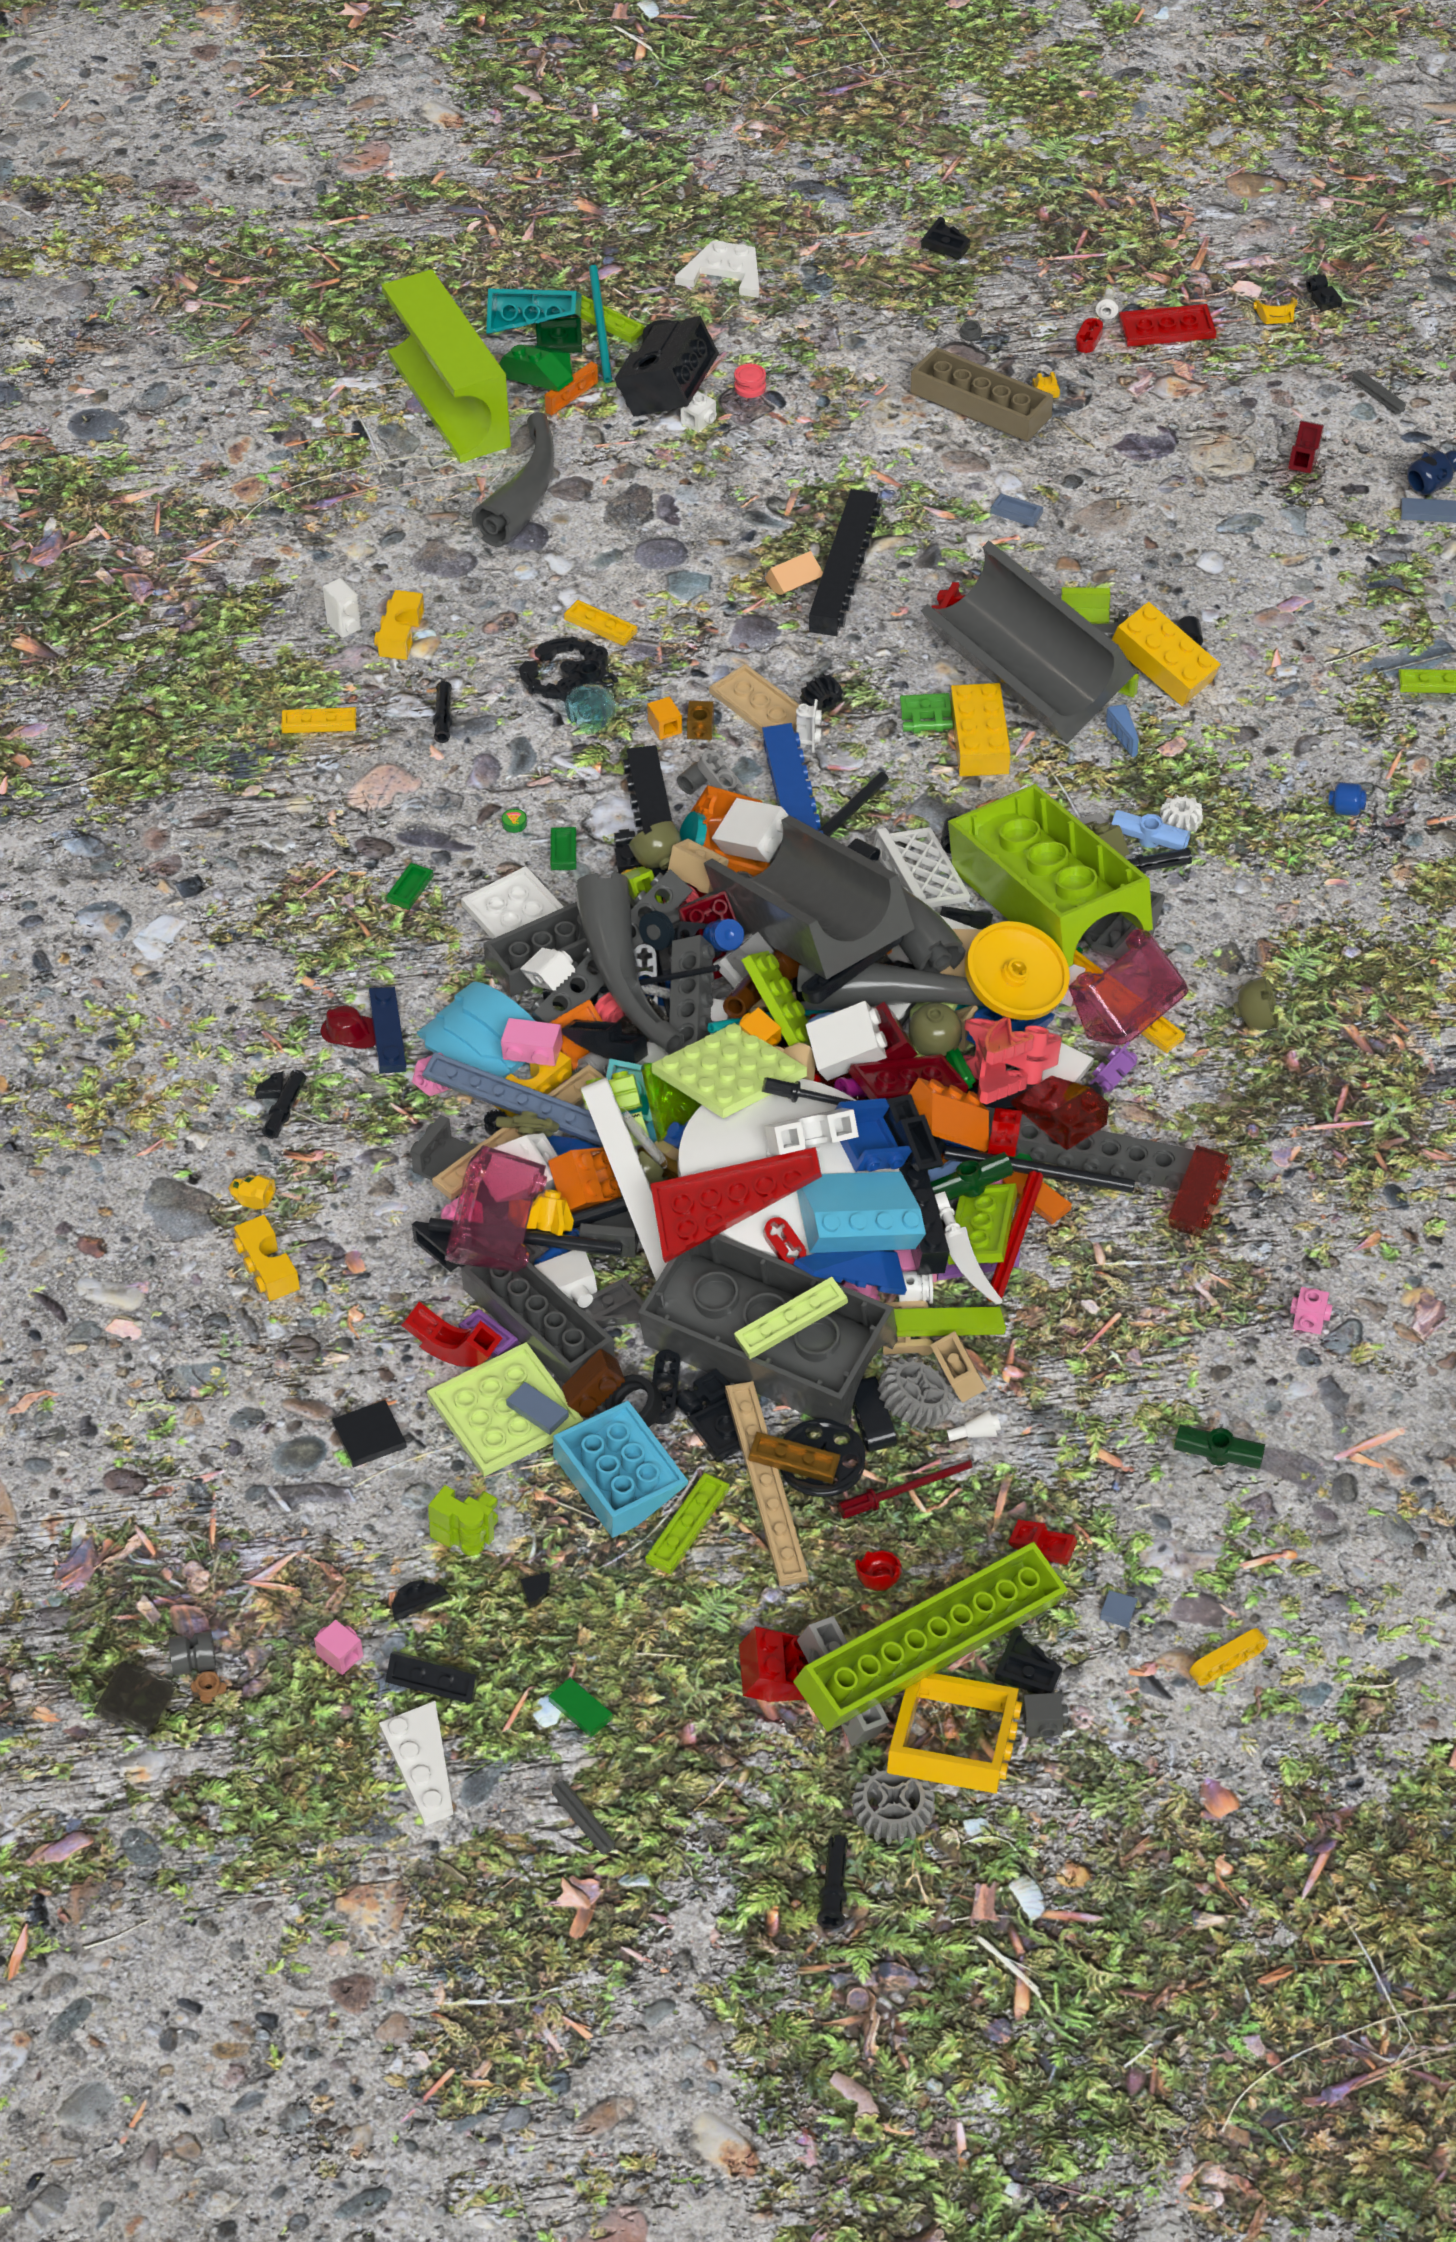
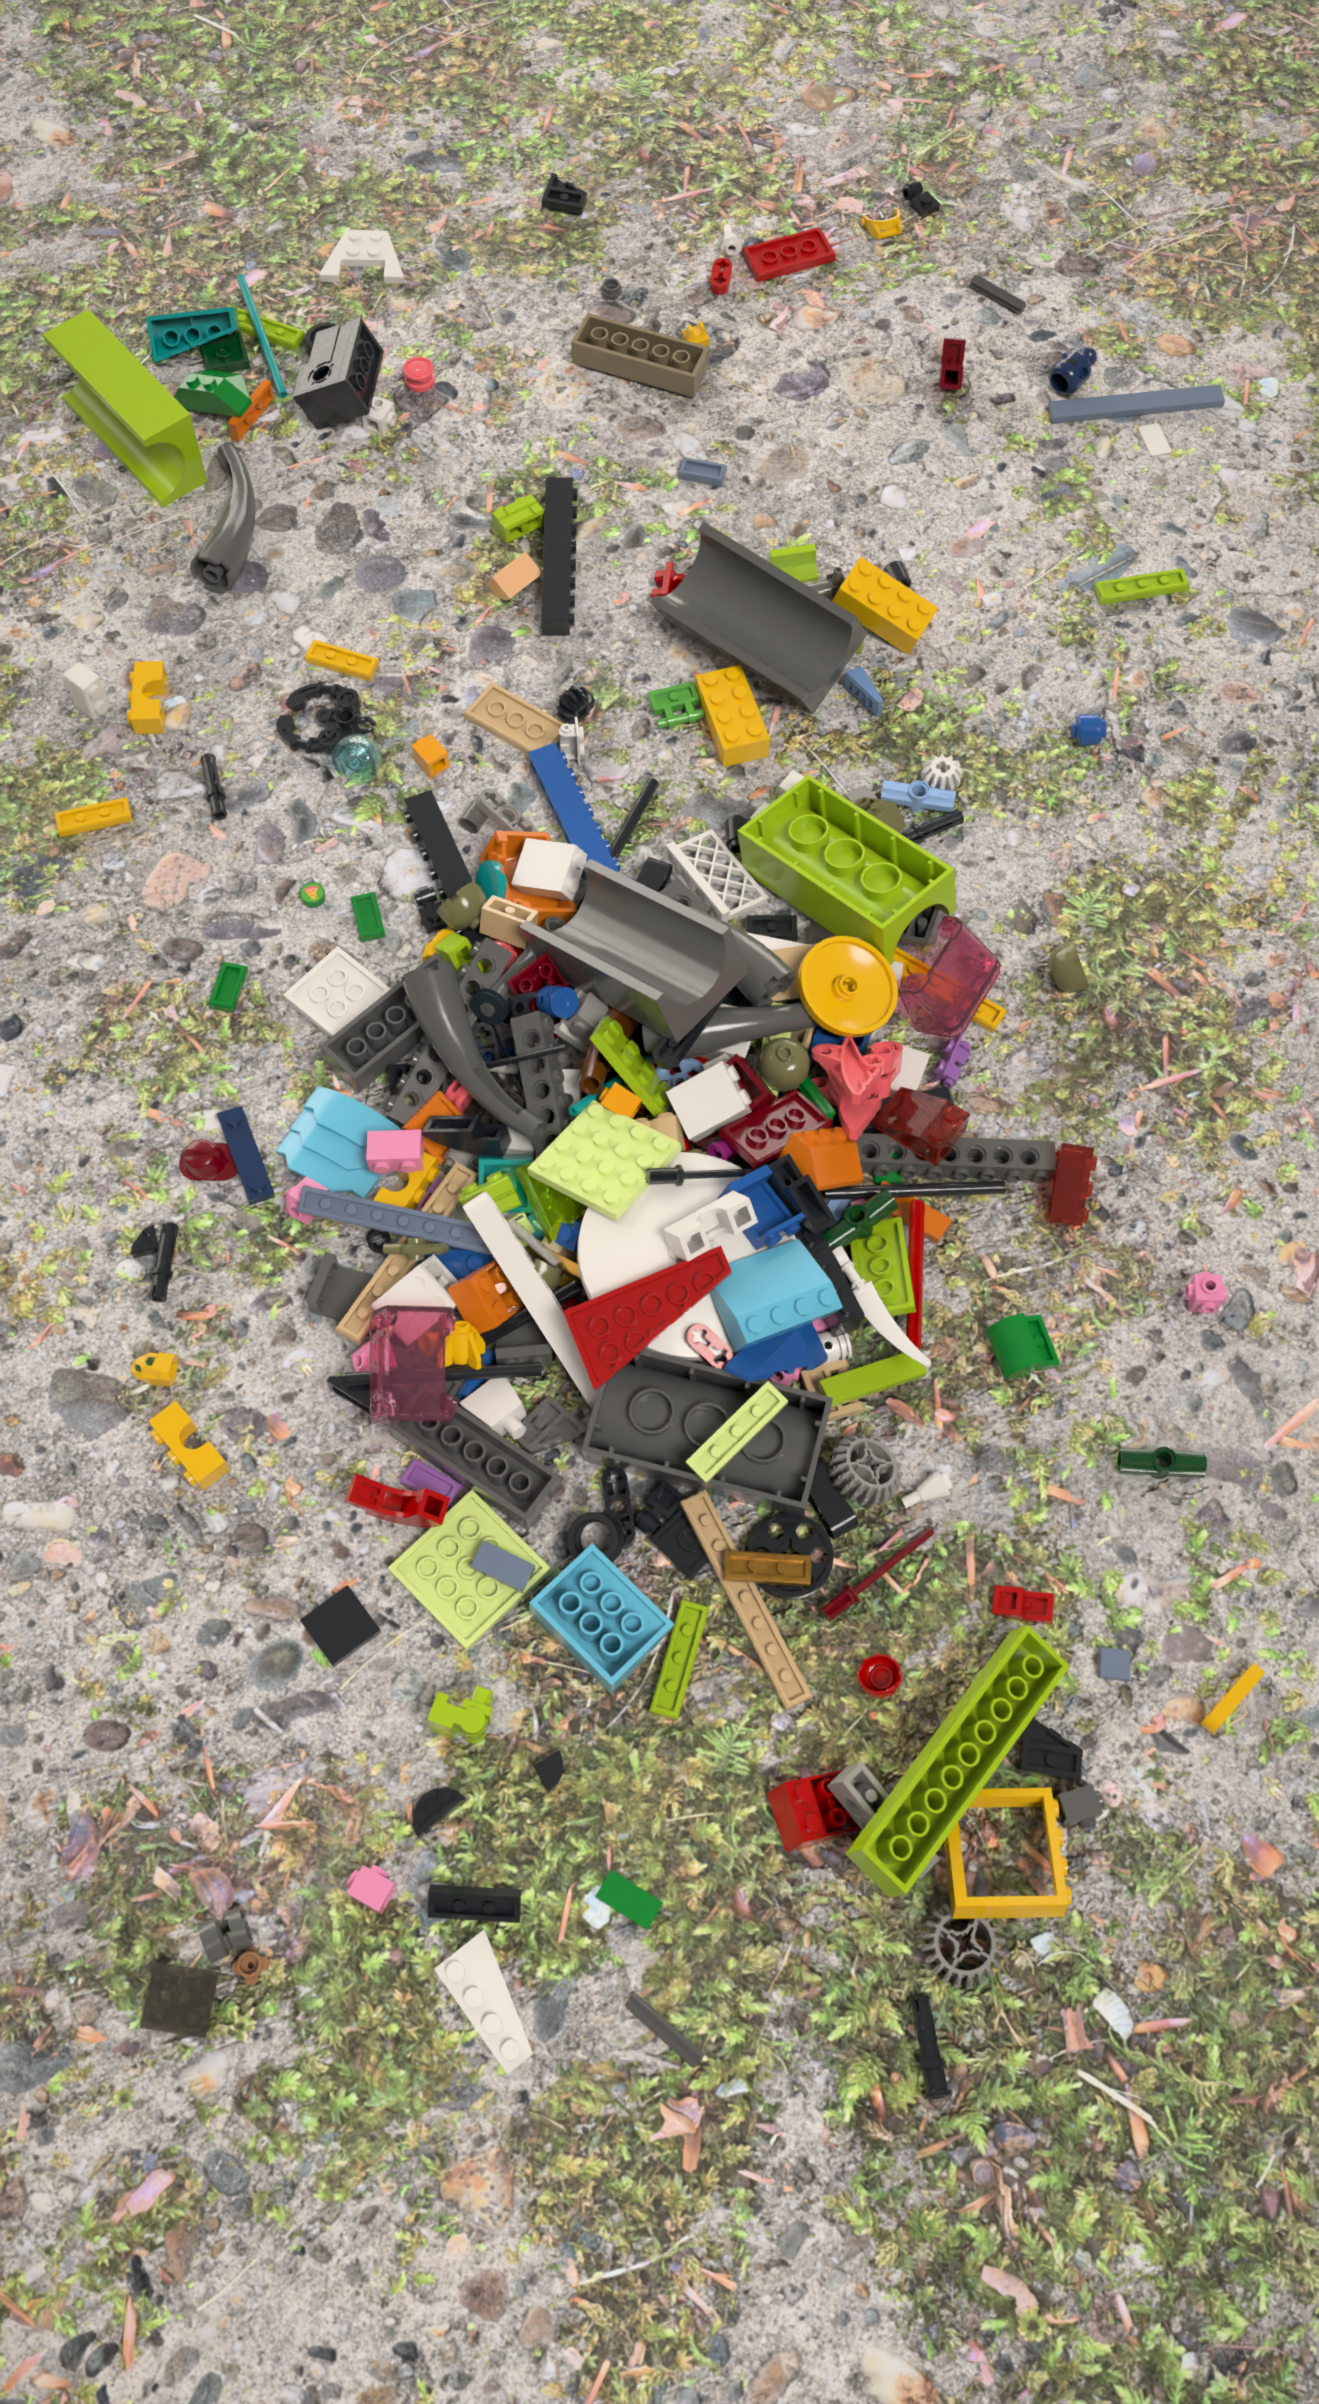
camera: 15 degrees left, 15 degrees up
(548, 968) = (393, 1066): white brick -> none
(593, 1383) = (552, 1528): reddish brown brick -> none
(700, 720) = (465, 752): pearl gold brick -> none
(813, 523) = (518, 518): none -> lime brick
(958, 1367) = (897, 1429): tan brick -> none
(1005, 1131) = (875, 1159): red slope -> none
(1108, 1321) = (1022, 1345): none -> green brick

